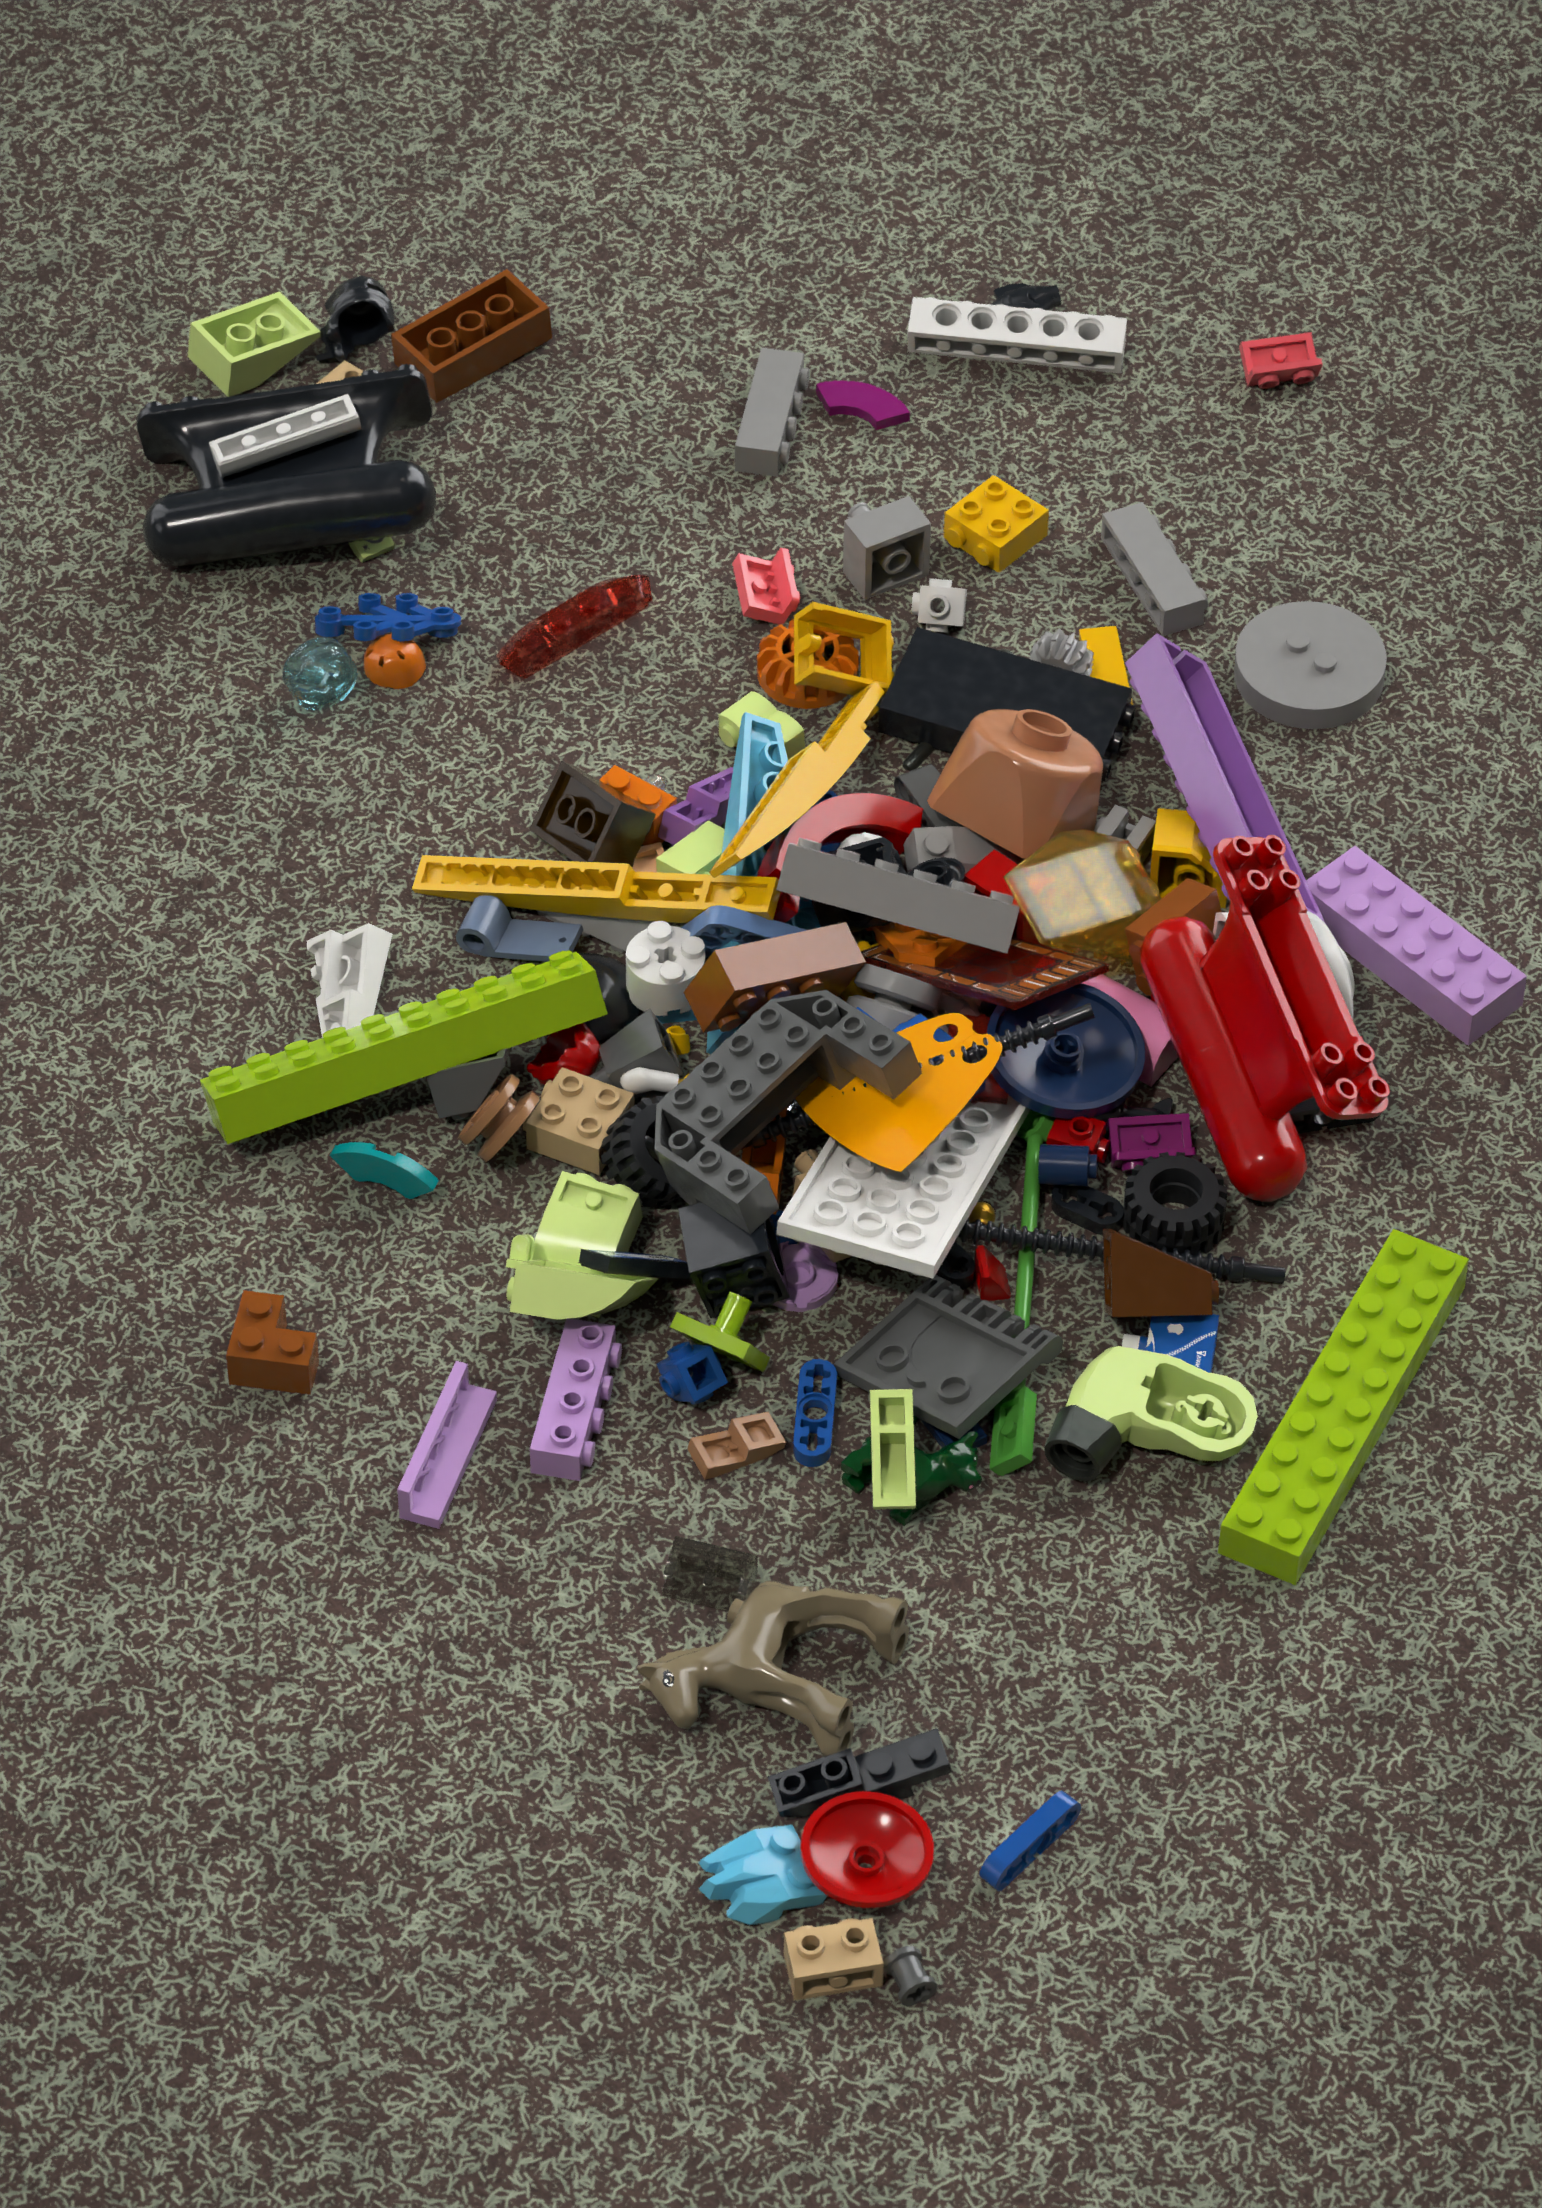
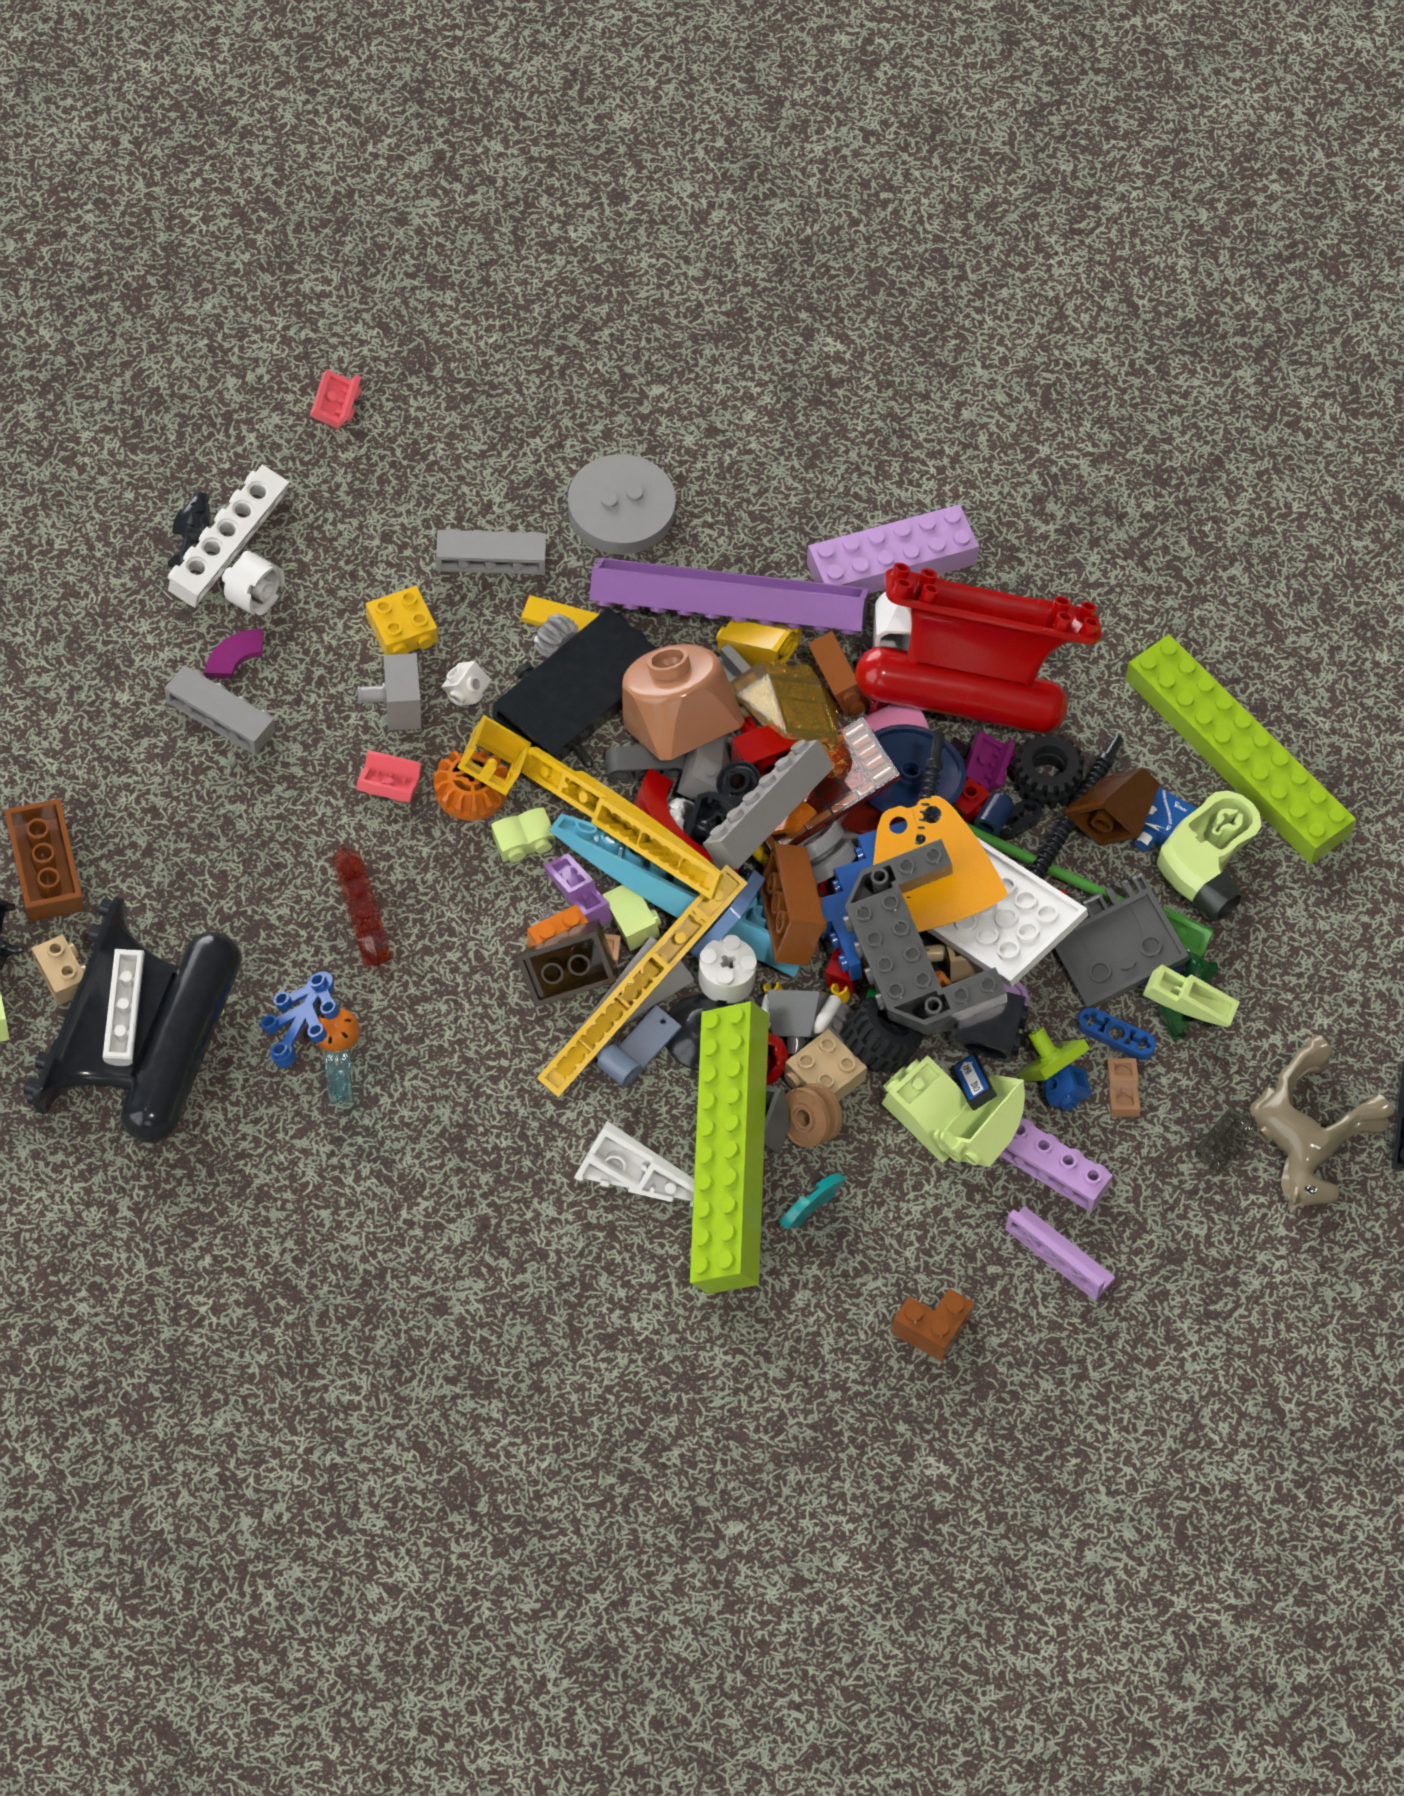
camera: 70 degrees left, 10 degrees up
(957, 372) = (253, 583): none -> white brick

